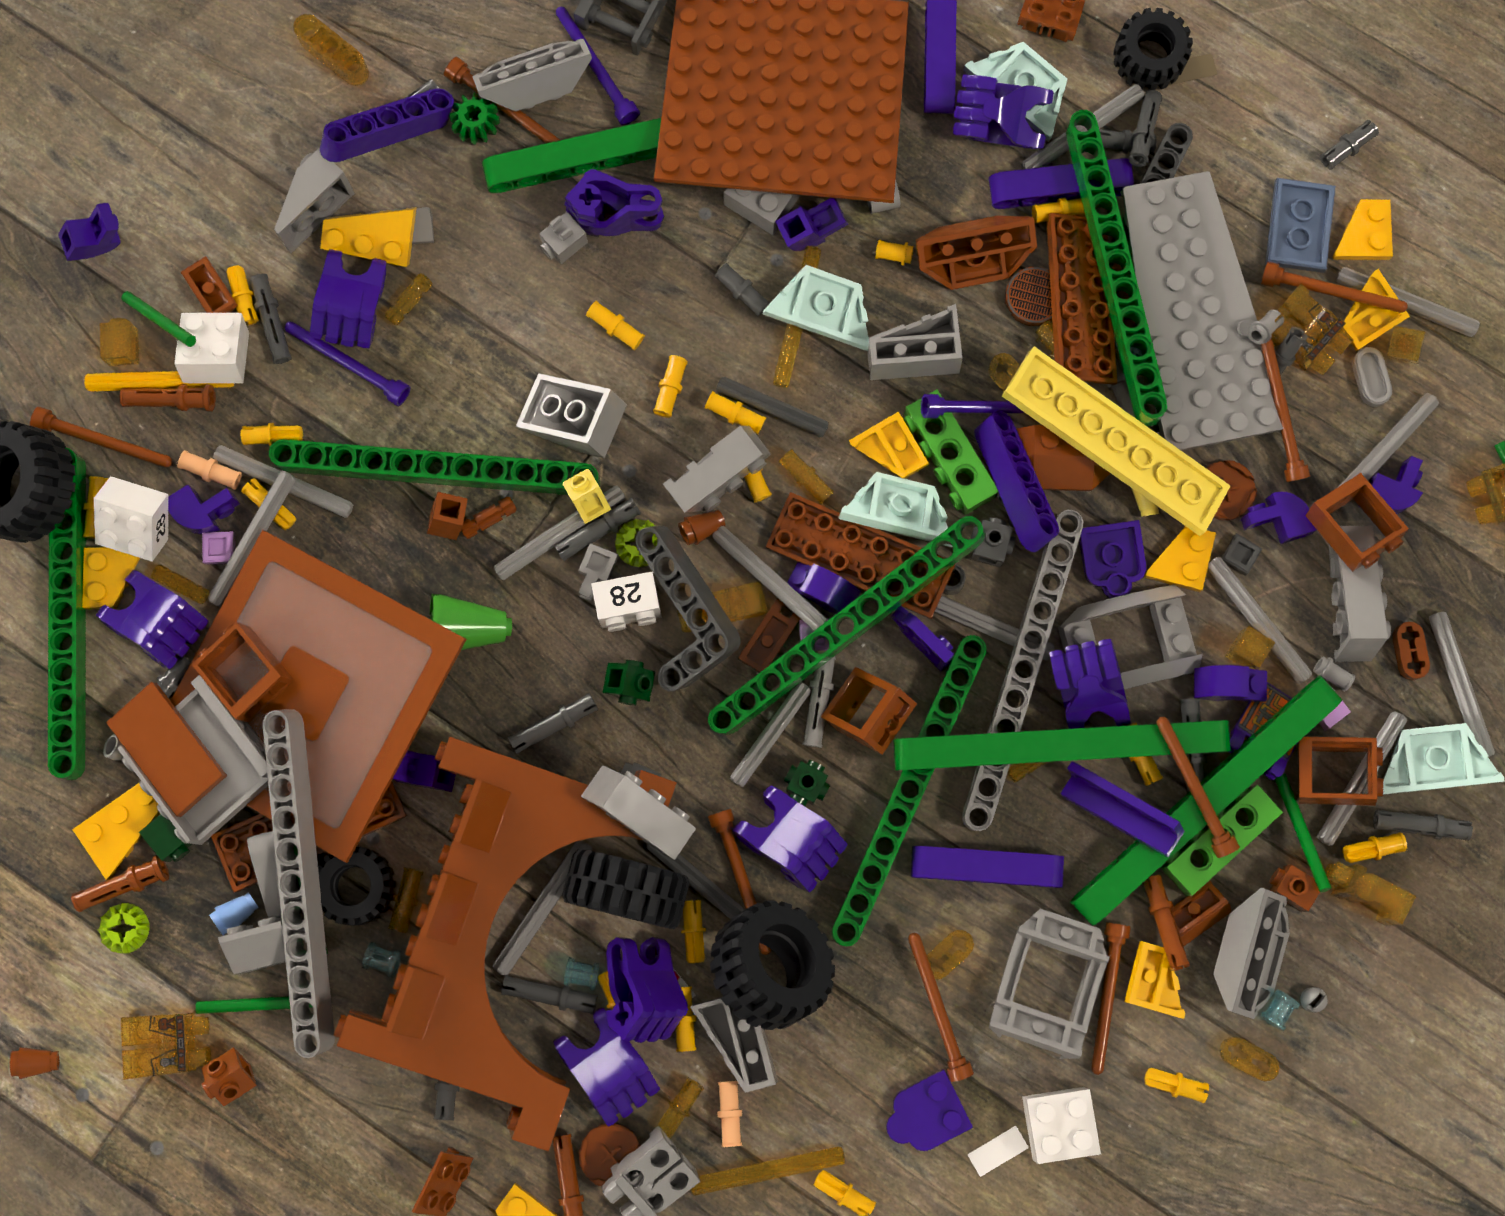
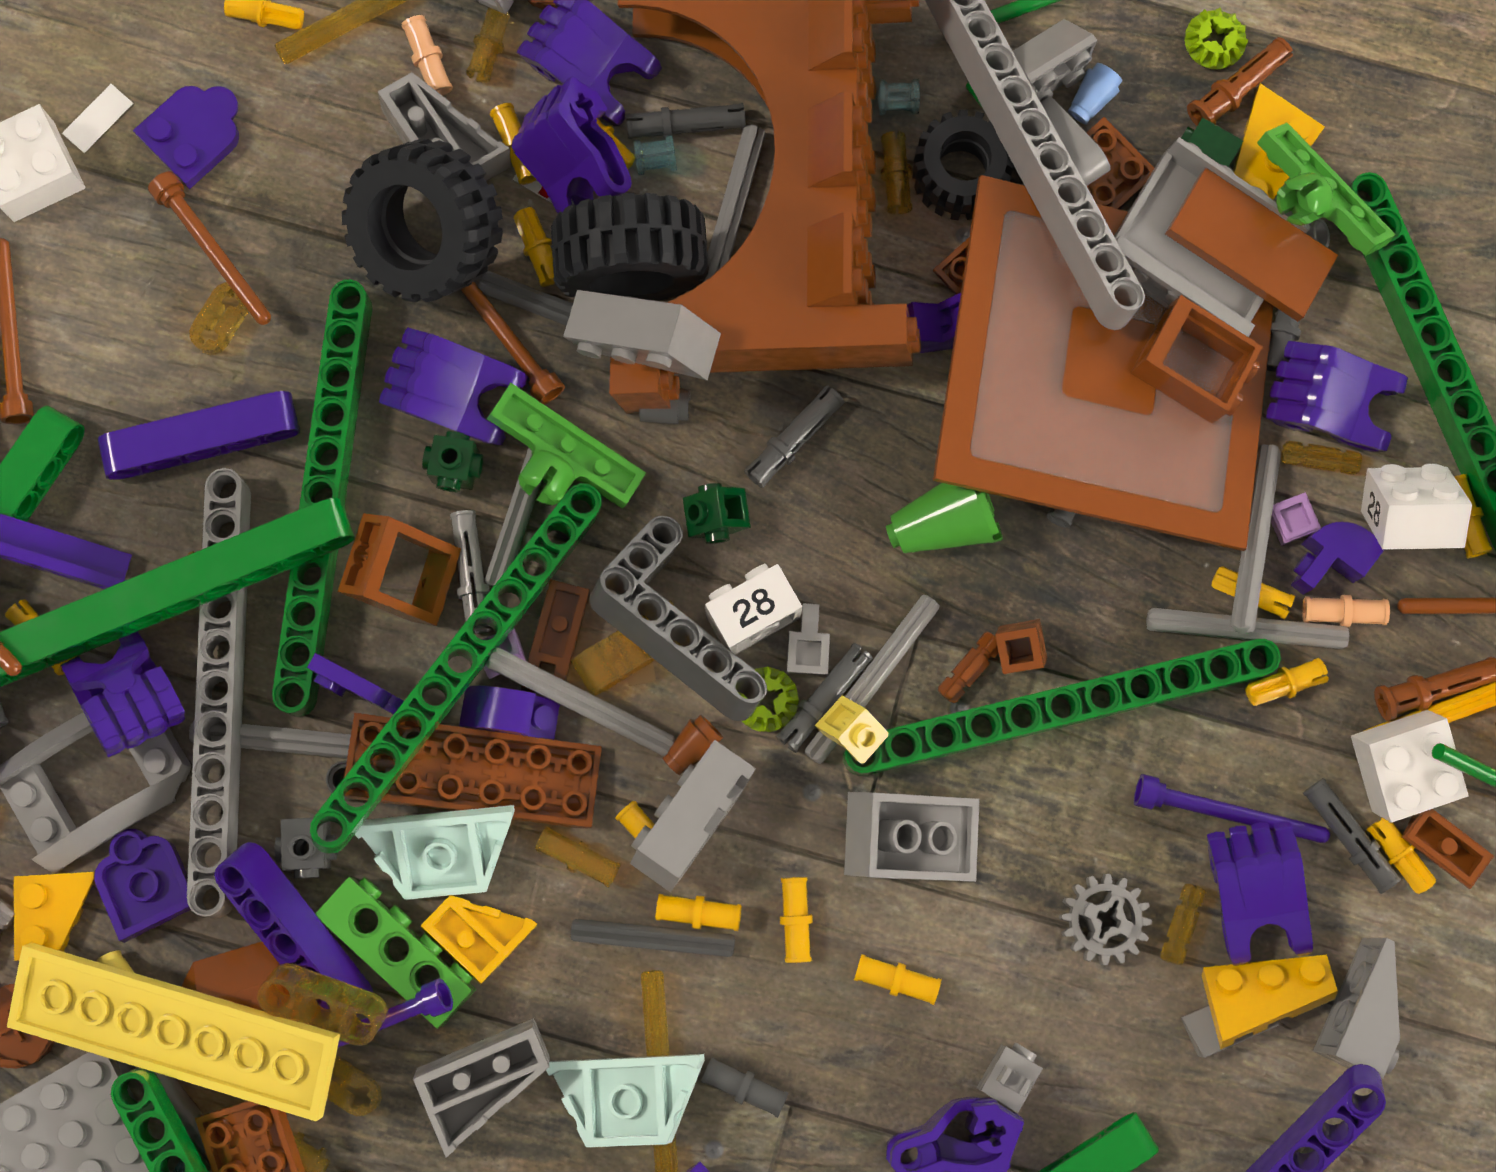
camera: 160 degrees right, 0 degrees up
(99, 770) = (1320, 192): none -> bright green plate
(105, 576) = (1418, 433): yellow wing -> none
(453, 326) = (1096, 936): none -> light grey gear
(725, 762) = (562, 452): none -> bright green plate
(1008, 423) = (342, 998): none -> clear yellow beam
(1036, 1026) = (79, 261): light grey wedge -> none

